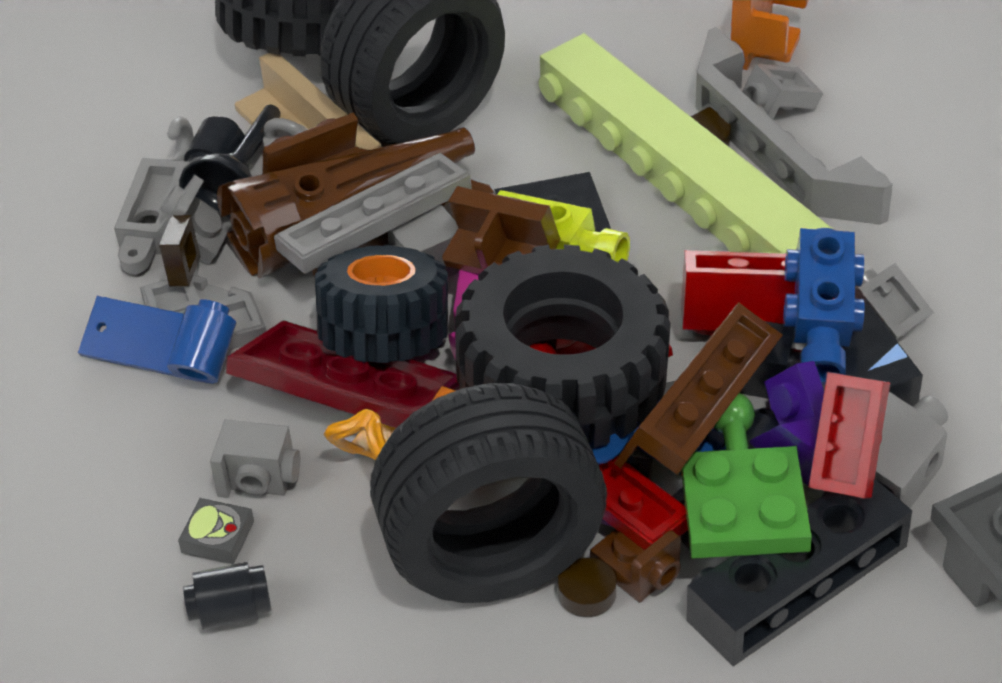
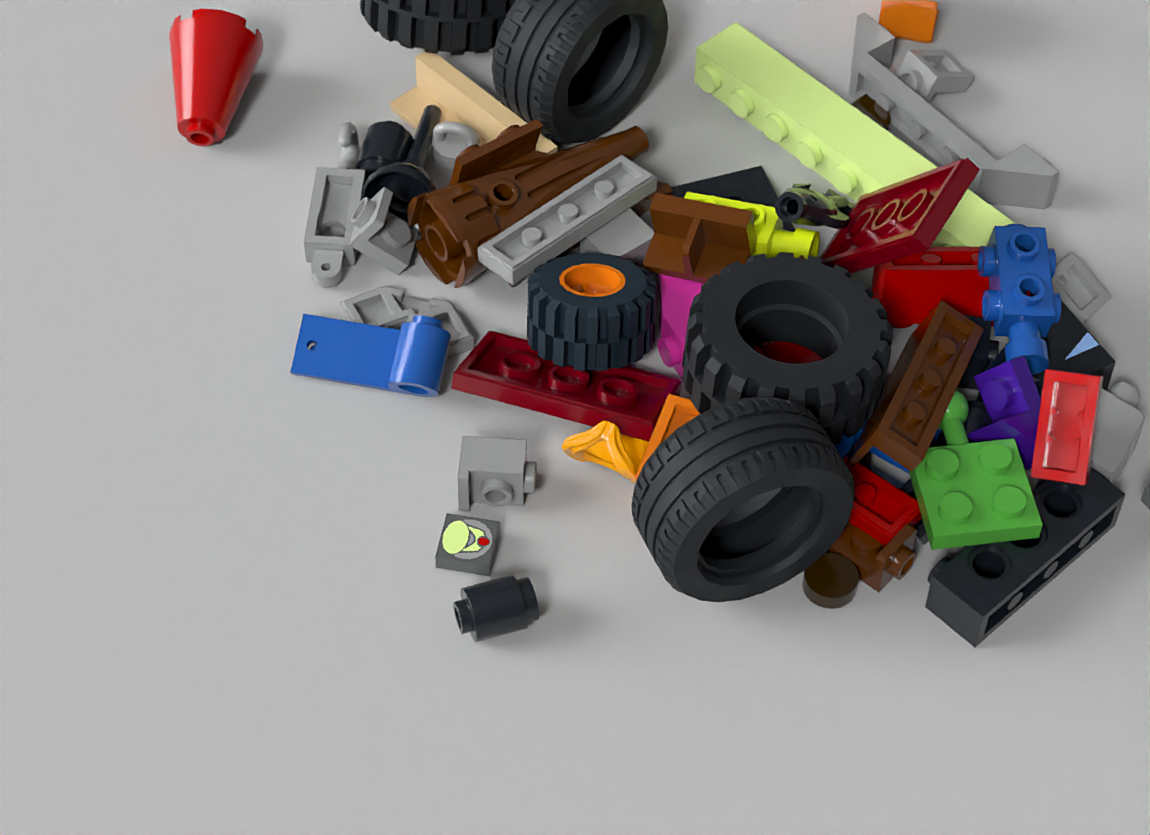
camera: 10 degrees left, 5 degrees up
(60, 66) = (210, 71): none -> red cone
(179, 250) = (378, 264): dark brown tile -> none
(626, 210) = (813, 208): none -> black animal
(705, 218) = (899, 218): none -> dark red tile

